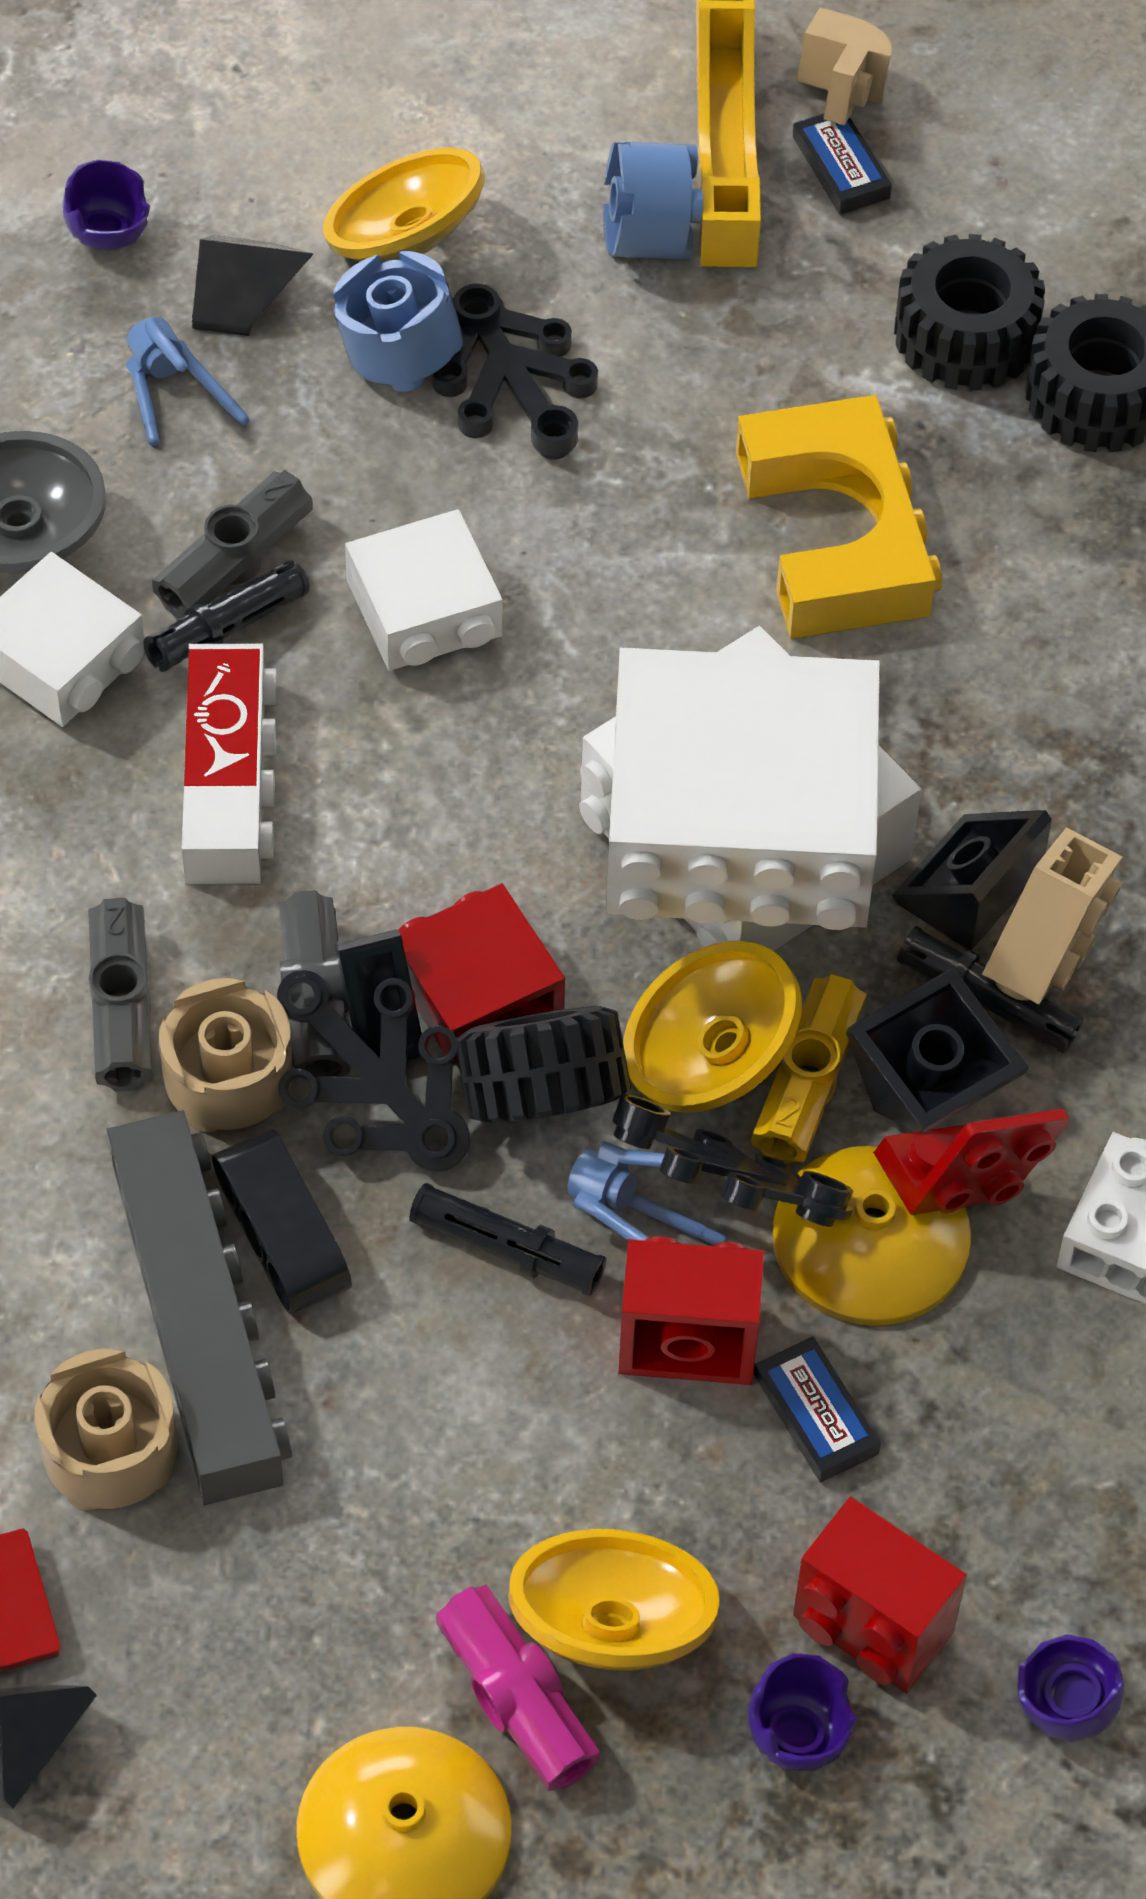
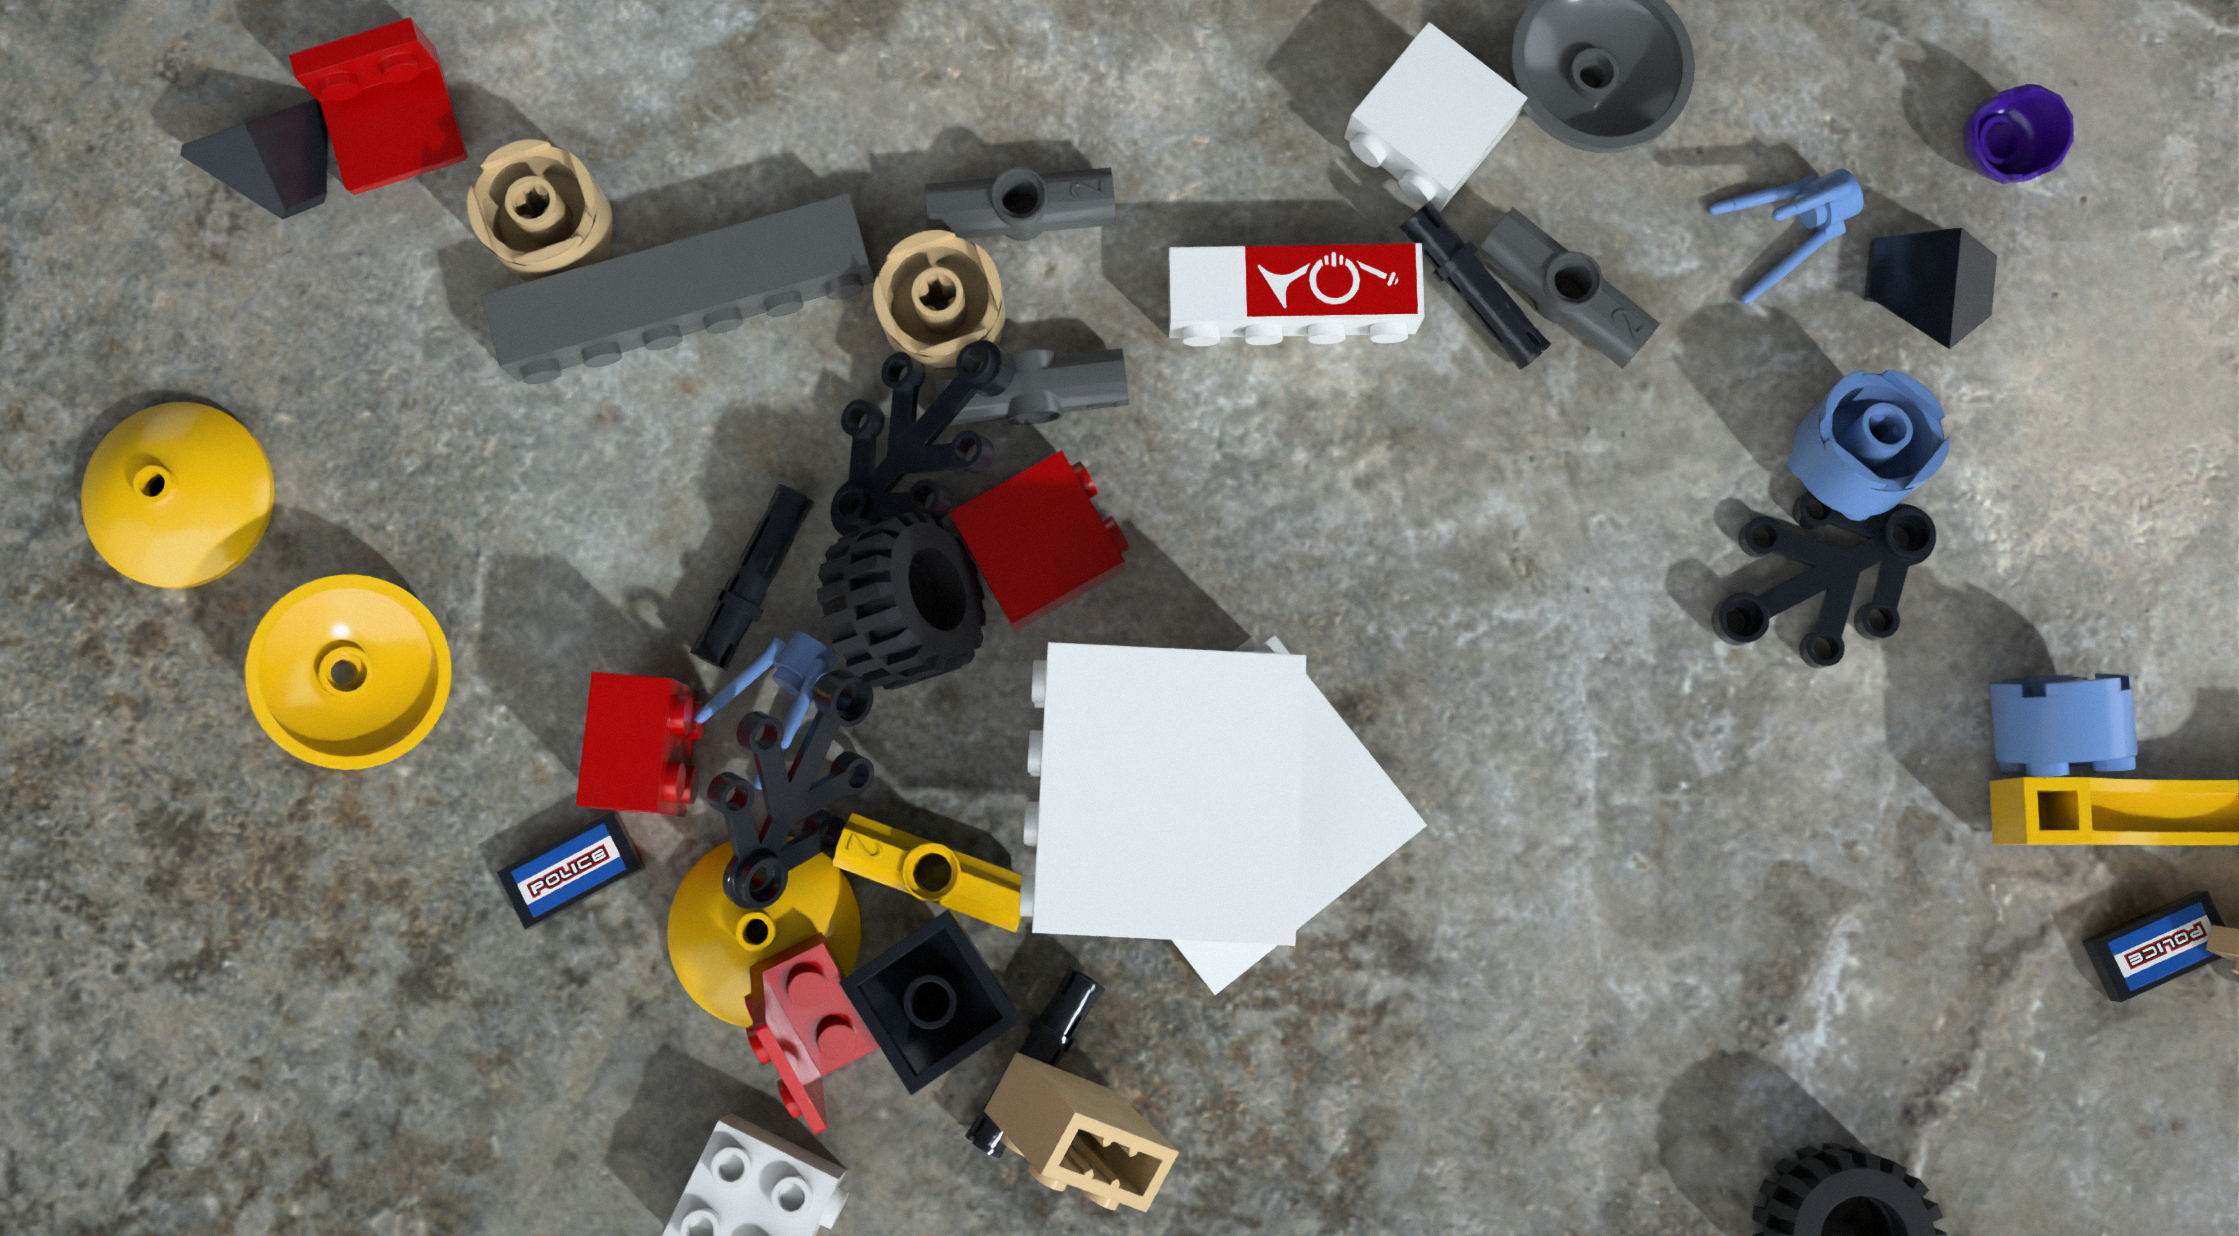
camera: 90 degrees right, 25 degrees up
(281, 1221) = (771, 364): black beam -> none
(362, 968) = (1017, 439): black tile -> none
(405, 205) = (2037, 449): yellow dish -> none
(424, 590) = (1509, 481): white brick -> none
(517, 1687) = (230, 620): dark pink piece -> none
(712, 1026) = (951, 747): yellow dish -> none
(801, 1712) = (241, 844): dark purple hair -> none
(848, 451) = (1727, 936): yellow arch -> none
(877, 1596) = (331, 919): red brick -> none
(973, 278) = (1980, 1094): black tyre -> none
(976, 872) = (1179, 1050): black slope -> none
(1070, 1688) = (253, 1099): dark purple hair -> none

